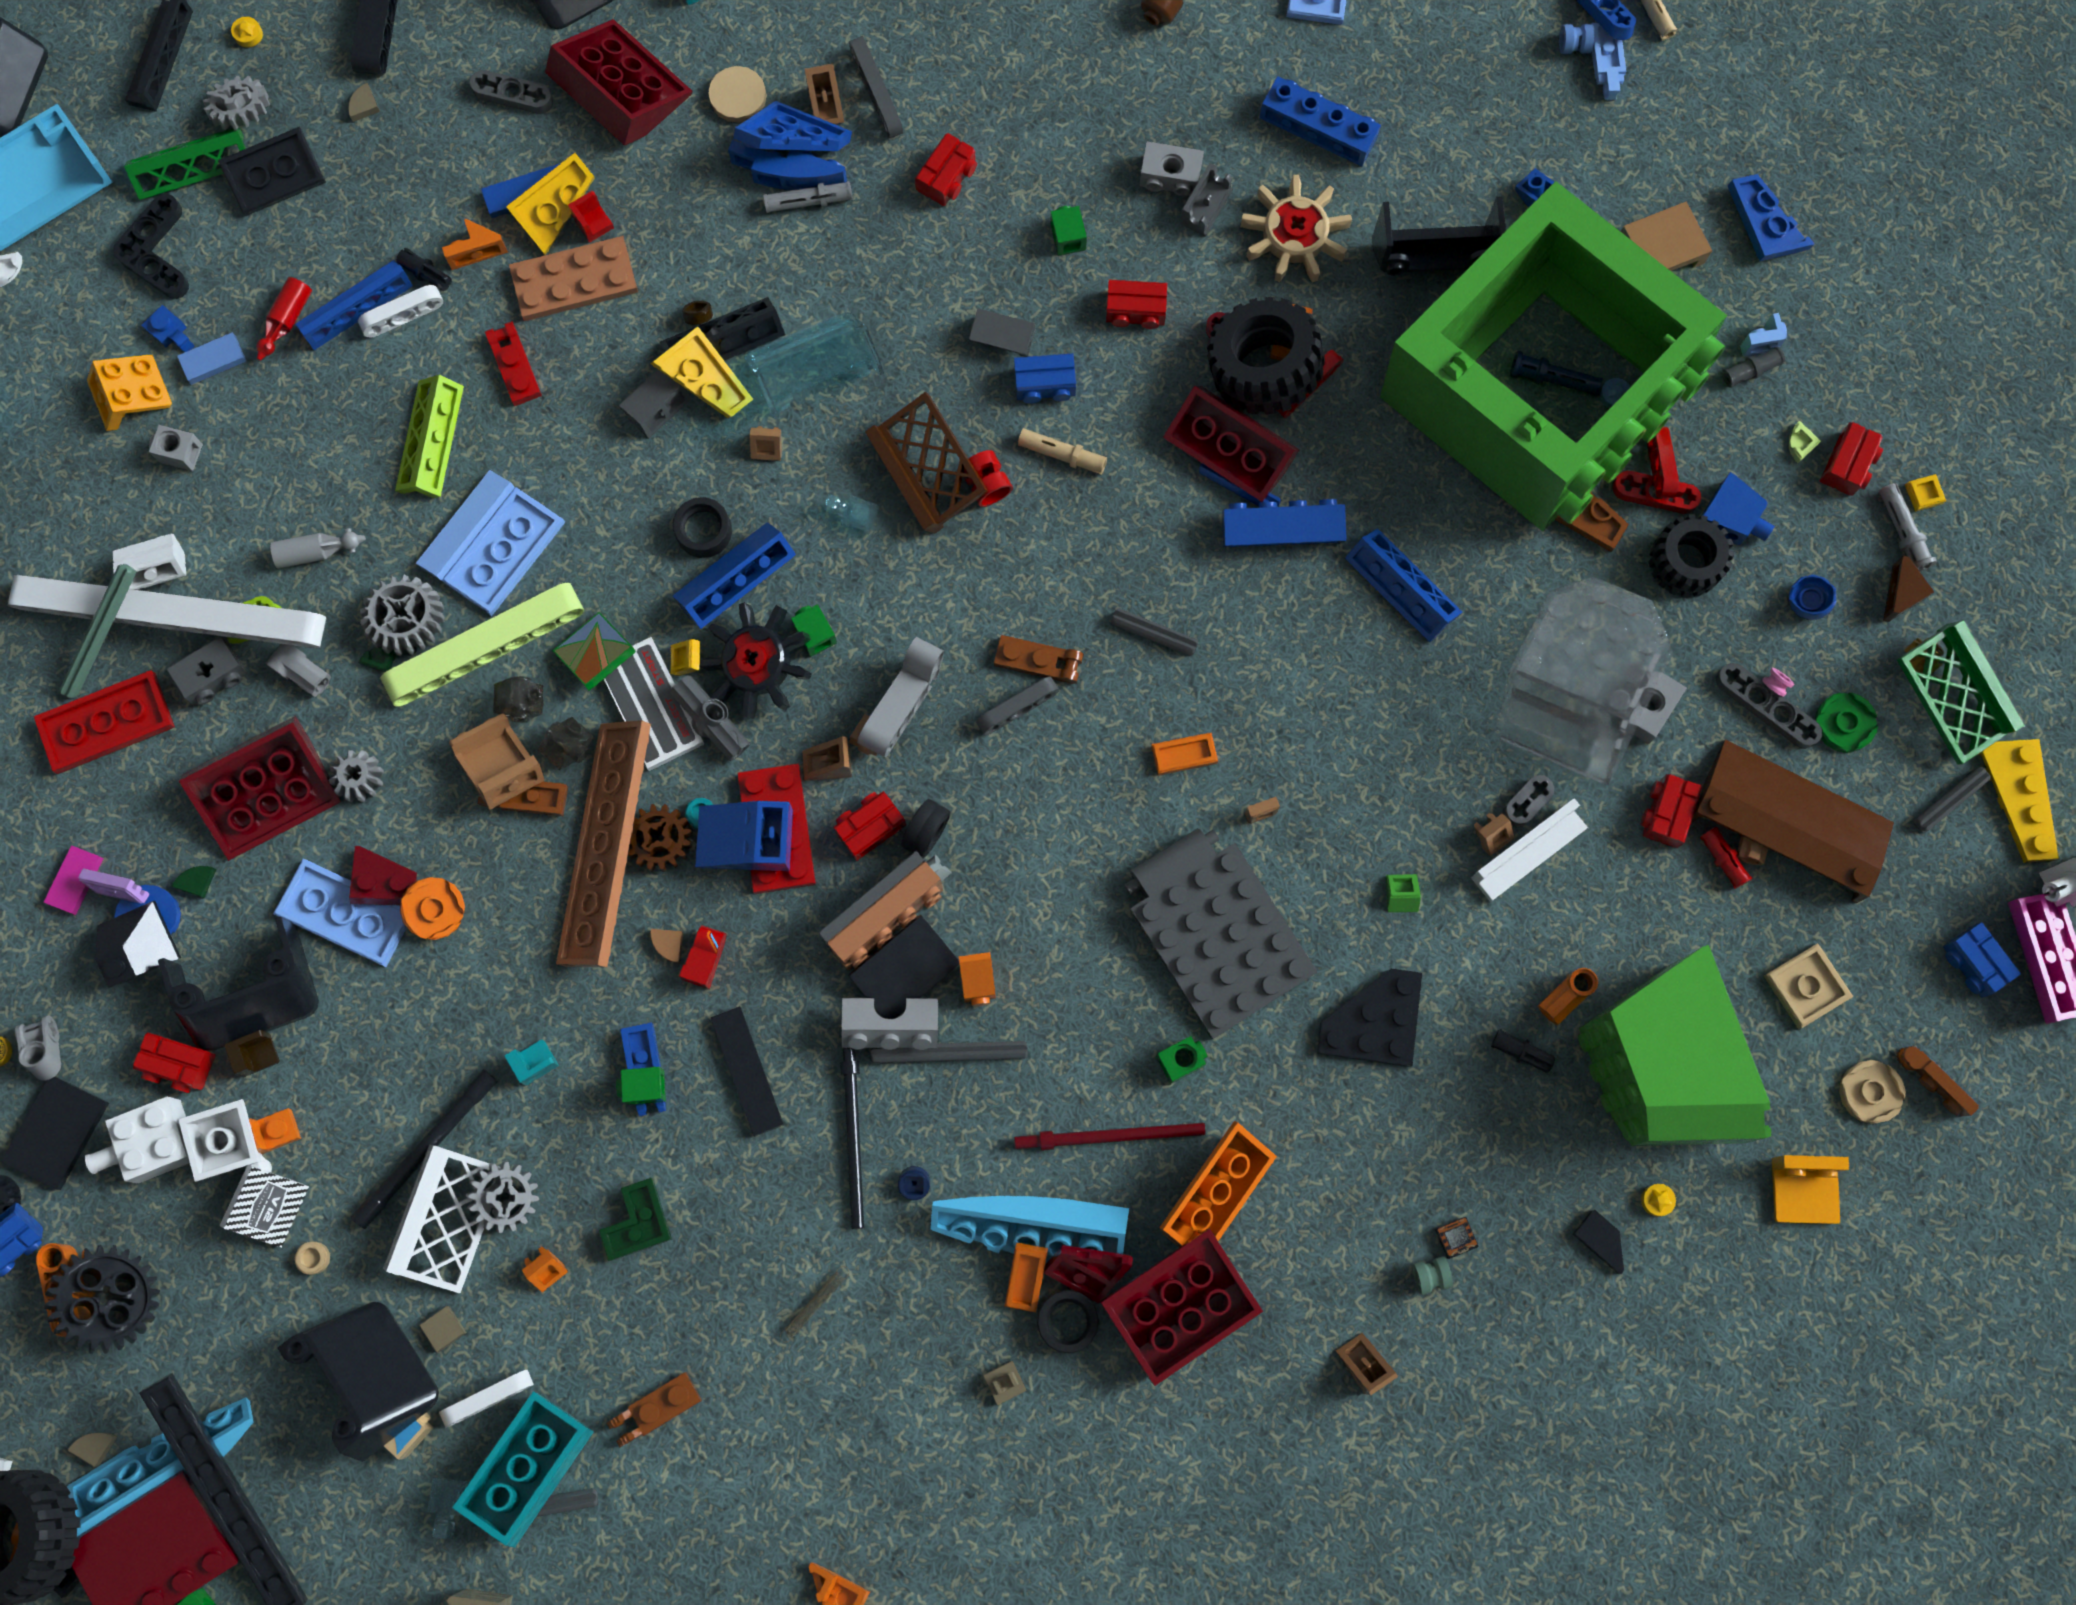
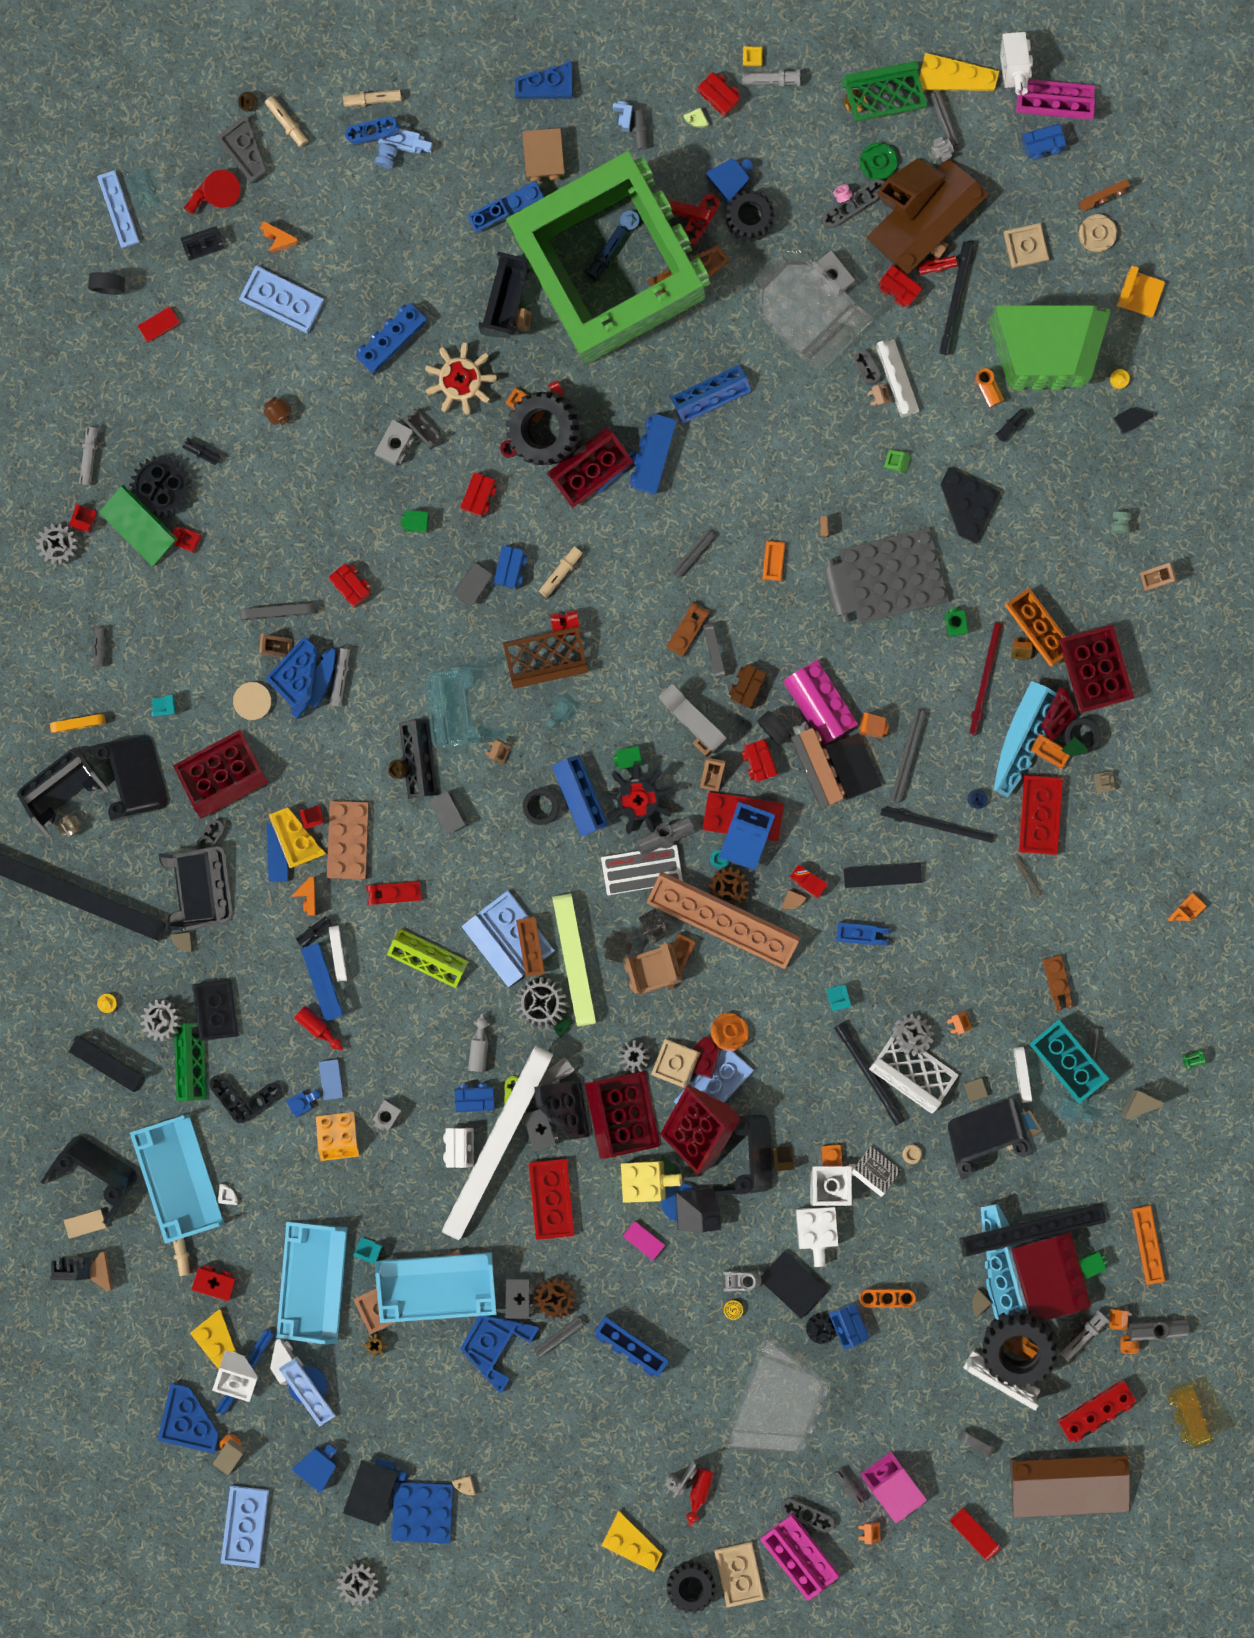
camera: 75 degrees left, 10 degrees up
(97, 631) = (498, 1185): sand green axle -> none
(98, 1328) = (917, 1279): black gear -> none
(113, 886) = (658, 1214): lavender tile -> none
(161, 850) = (646, 1181): none -> light yellow brick
(173, 1061) = (774, 1204): red brick -> none
(231, 564) = (474, 1099): none -> blue brick
(247, 693) = (564, 1107): none -> black plate
(256, 903) = (699, 1128): none -> dark red slope
(360, 842) = (675, 1063): none -> tan tile
(446, 102) = (200, 887): none -> black windscreen
(482, 572) = (530, 947): none -> dark orange plate
(594, 651) = (600, 893): tile -> none
(641, 1086) = (875, 937): green brick -> none
(646, 1223) = (954, 958): dark green plate -> none
(685, 657) = (620, 840): yellow tile -> none
(704, 373) = (444, 776): yellow wing -> none
(866, 1029) = (881, 800): light grey arch -> none
(918, 1293) = (1040, 815): none -> red plate
(978, 772) = (748, 686): none -> reddish brown brick
(989, 889) = (820, 702): none -> dark pink brick
(1042, 1313) = (1074, 748): none -> dark green tile
(1173, 1177) = (1021, 650): none -> pearl gold tile
(1414, 287) = (523, 319): none -> medium nougat tile
(1456, 1238) = (1104, 501): tile -> none
(1752, 897) = (965, 257): none -> black piece
(1812, 597) = (797, 152): blue hair -> none
(1827, 776) = (910, 188): none -> reddish brown slope
(1905, 588) = (811, 95): reddish brown slope -> none
(1905, 808) = (942, 149): none -> light grey gear

